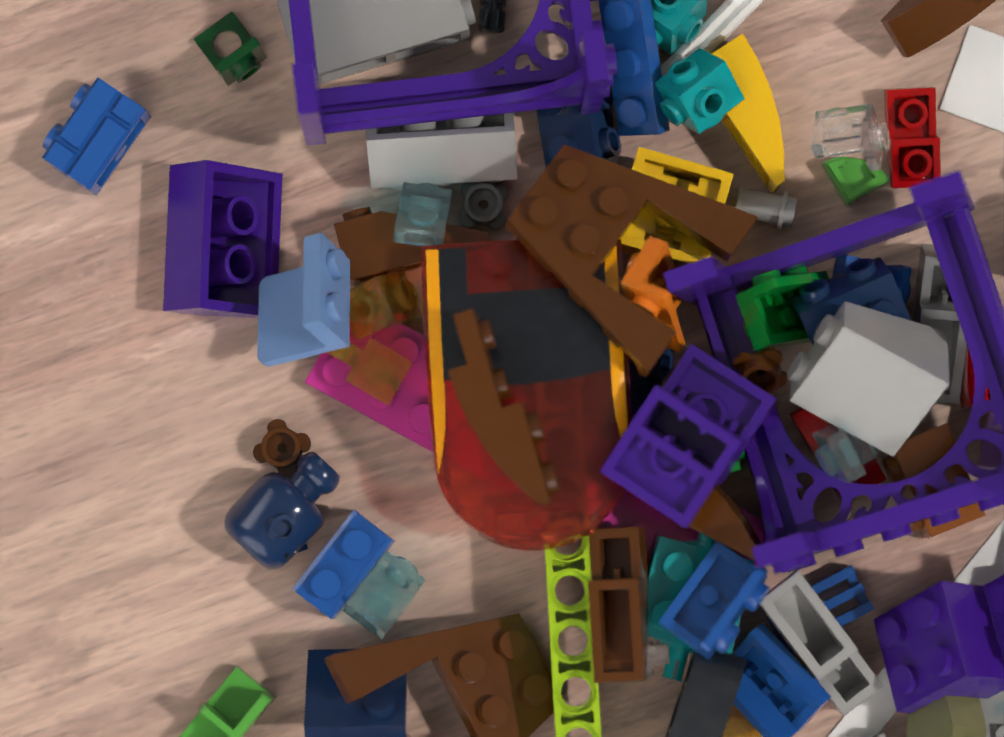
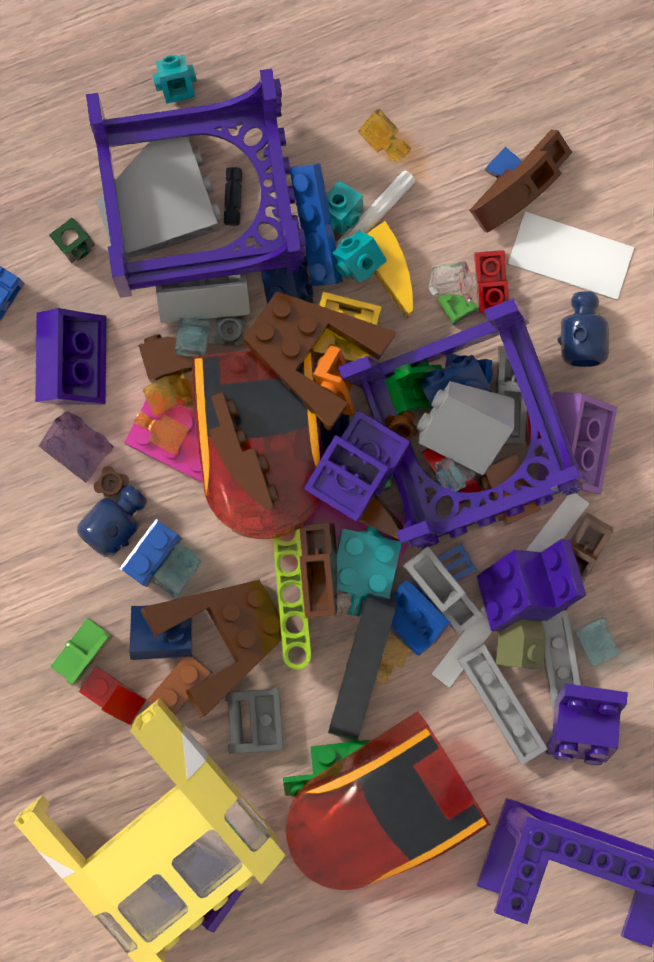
camera: 10 degrees left, 0 degrees up
(226, 384) = (75, 445): none -> clear purple bracket
(305, 307) = (123, 396): medium blue bracket -> none
(714, 600) = (376, 566): blue bracket -> none
(767, 206) = (404, 326): light grey pin -> none

